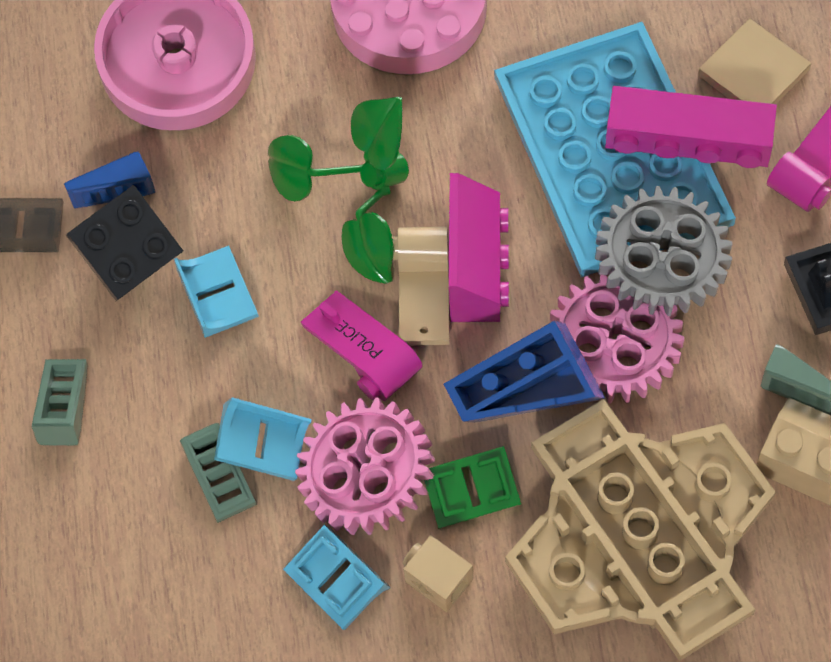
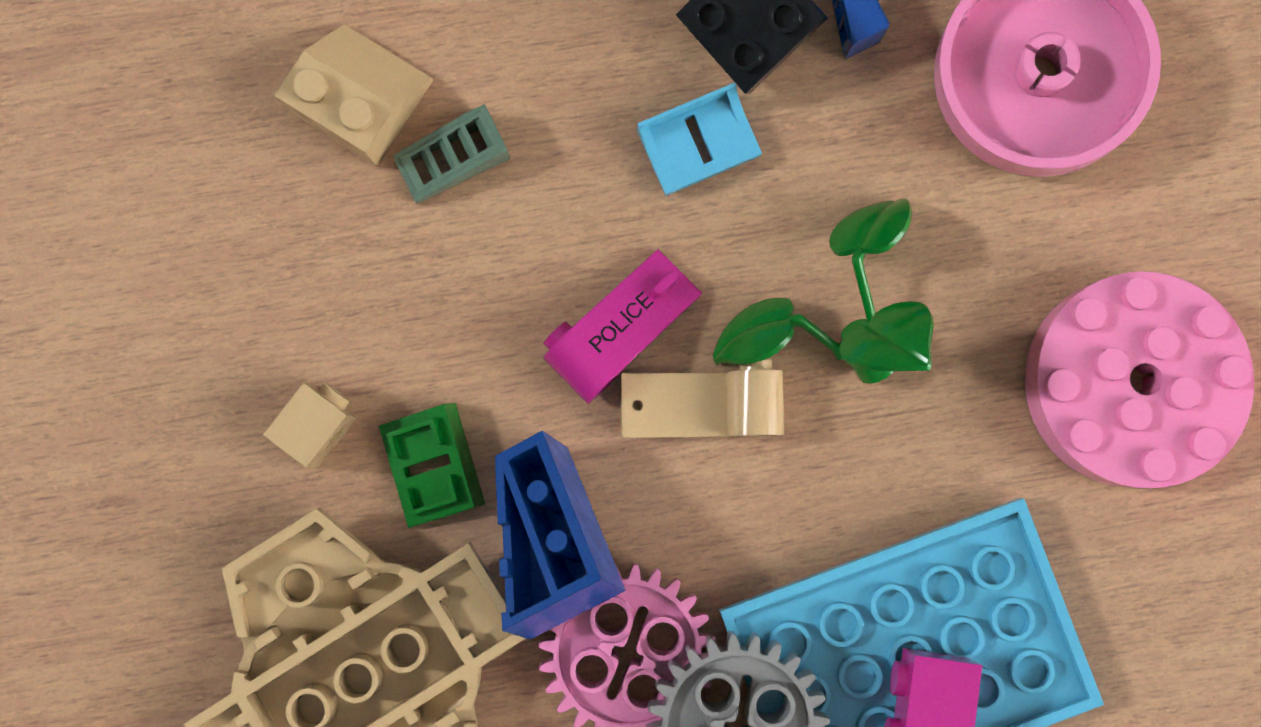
camera: 80 degrees right, 20 degrees up
(165, 546) = (353, 92): none -> tan slope
(281, 439) = (490, 177): medium azure piece -> none
(329, 462) = (437, 377): bright pink gear -> none
(350, 591) = (300, 323): medium azure piece -> none
(476, 251) = (746, 474): dark pink slope -> none

